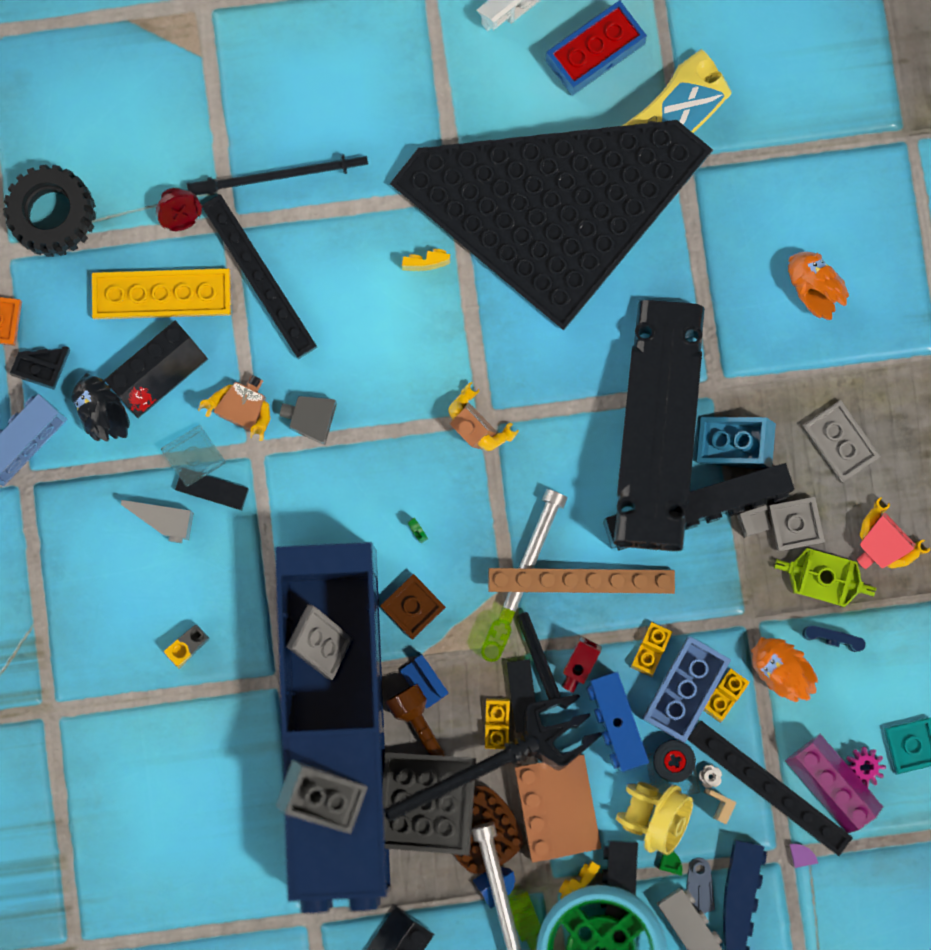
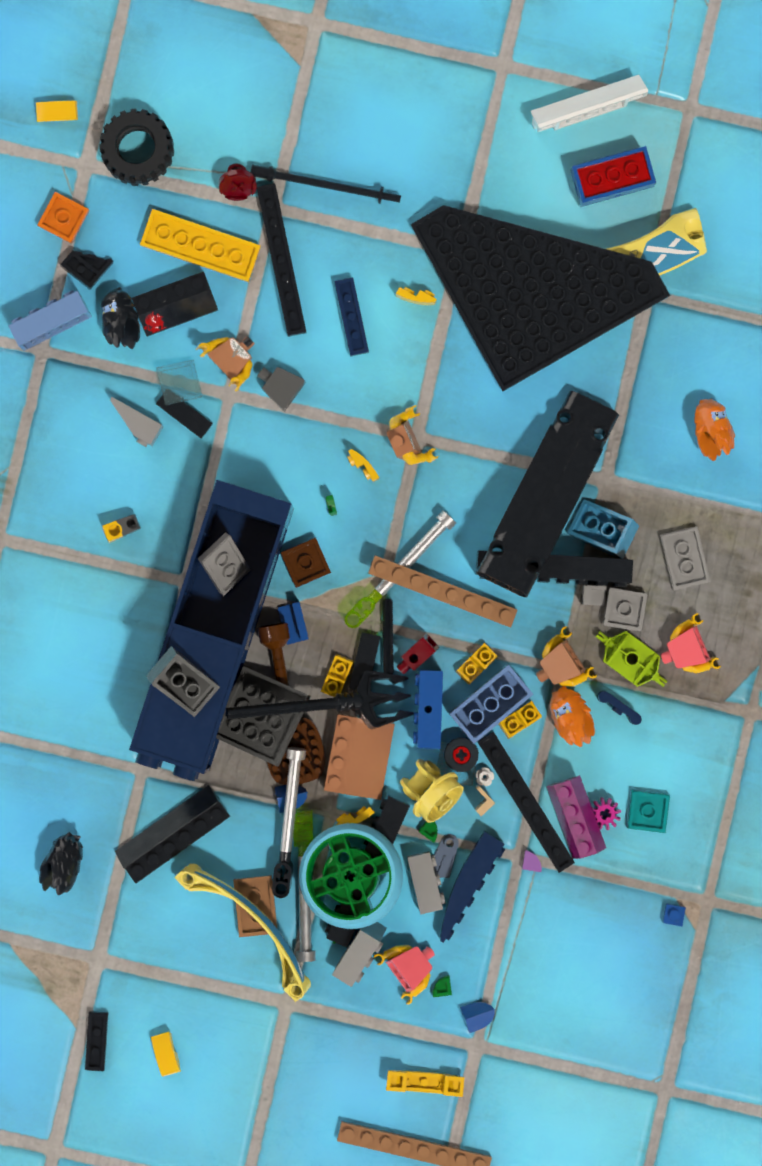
camera: 15 degrees right, 5 degrees up
(361, 310) = (351, 317): none -> dark blue plate
(430, 468) = (359, 461): none -> yellow slope
(749, 612) = (561, 663): none -> nougat torso

